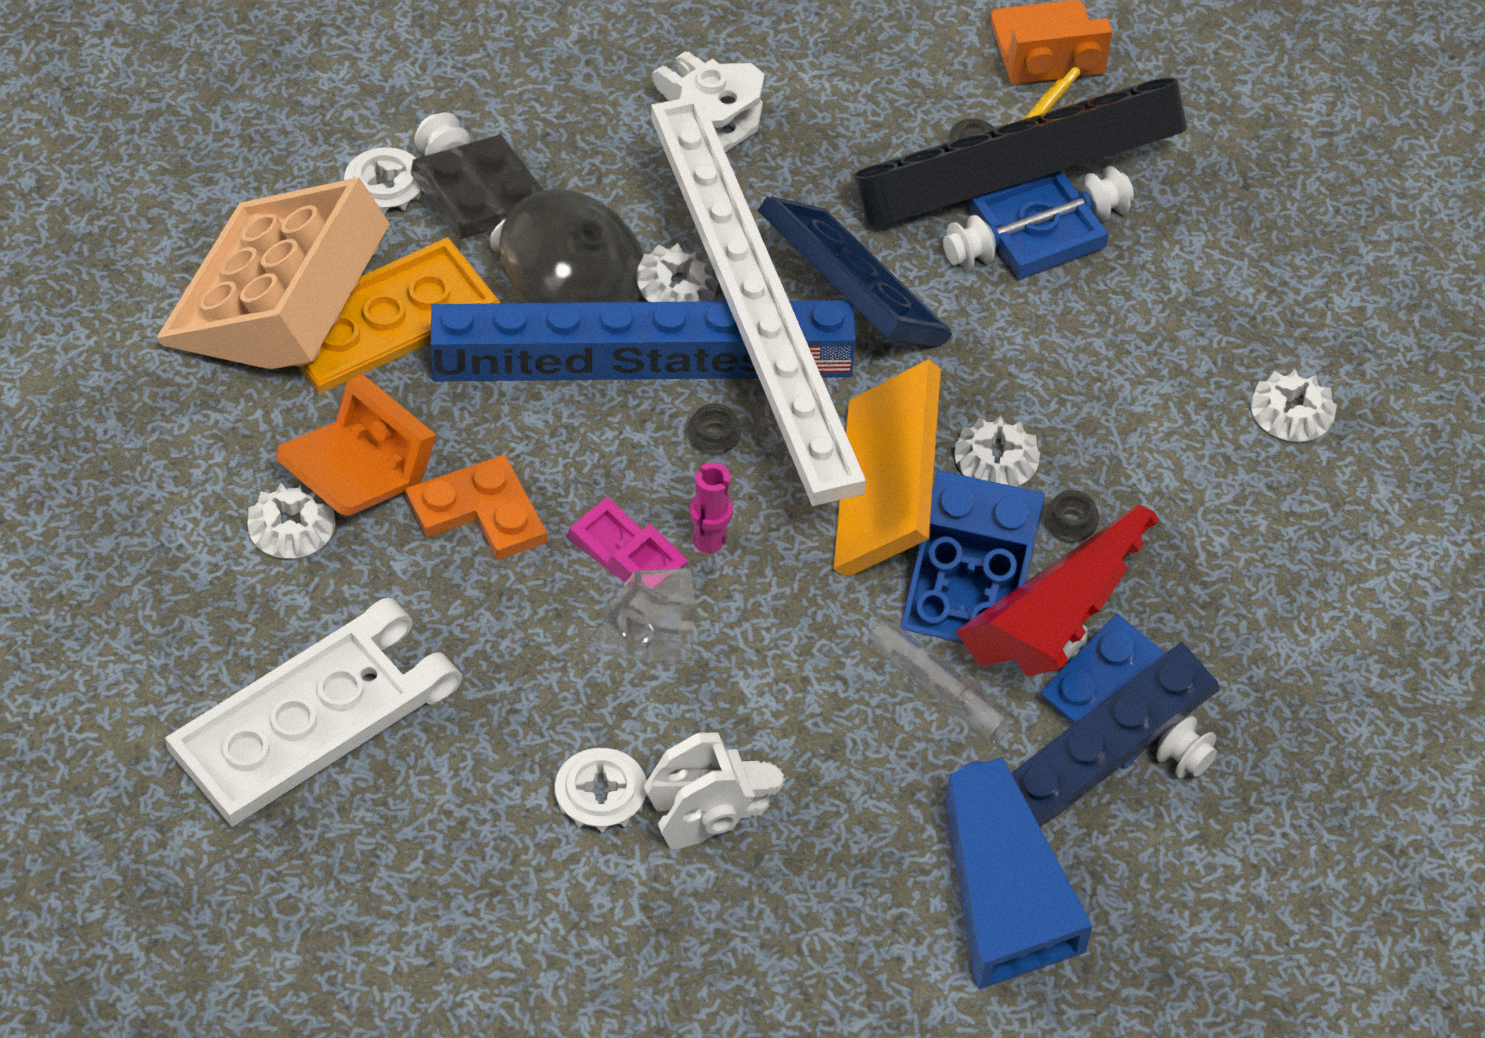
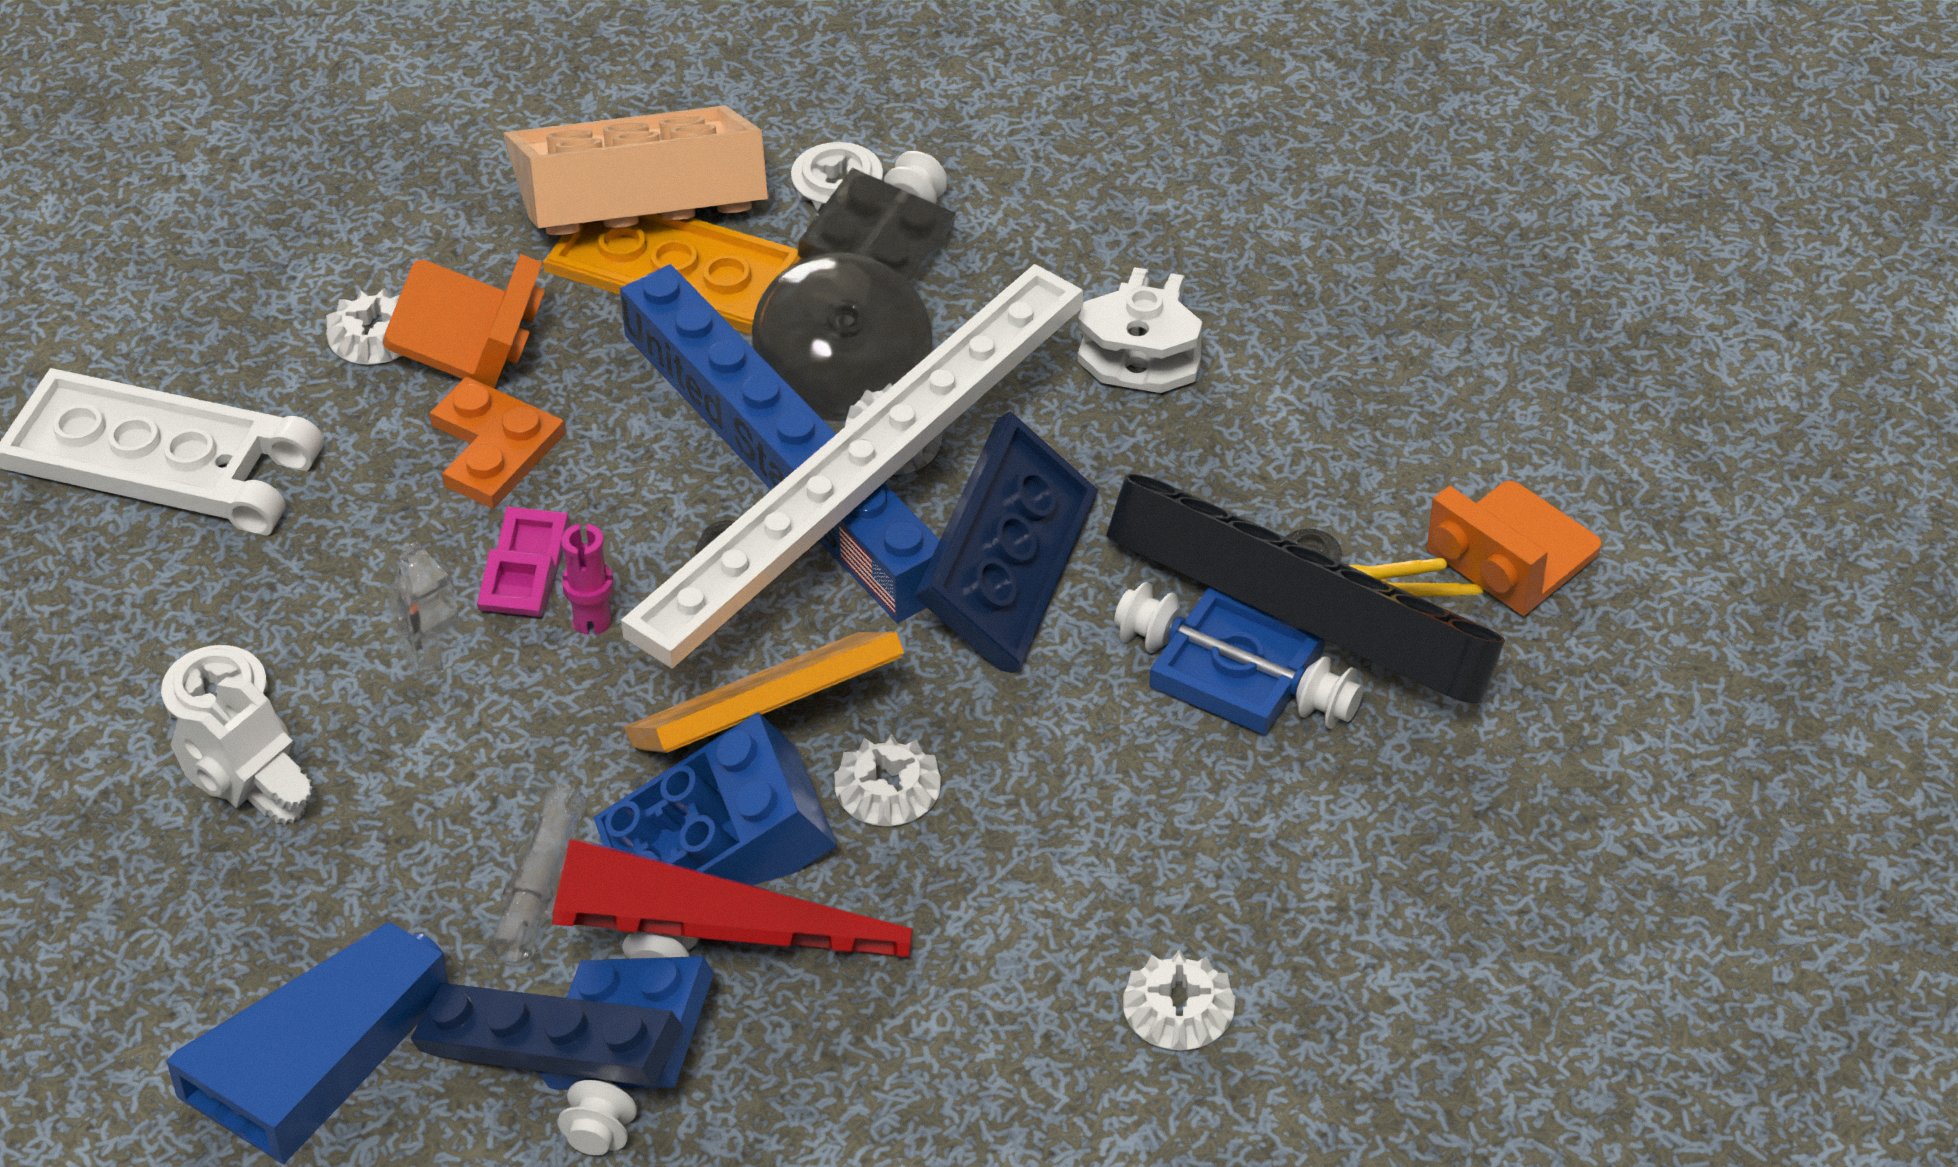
camera: 60 degrees right, 5 degrees down
(1072, 503) = (843, 864): clear smoke plate -> none

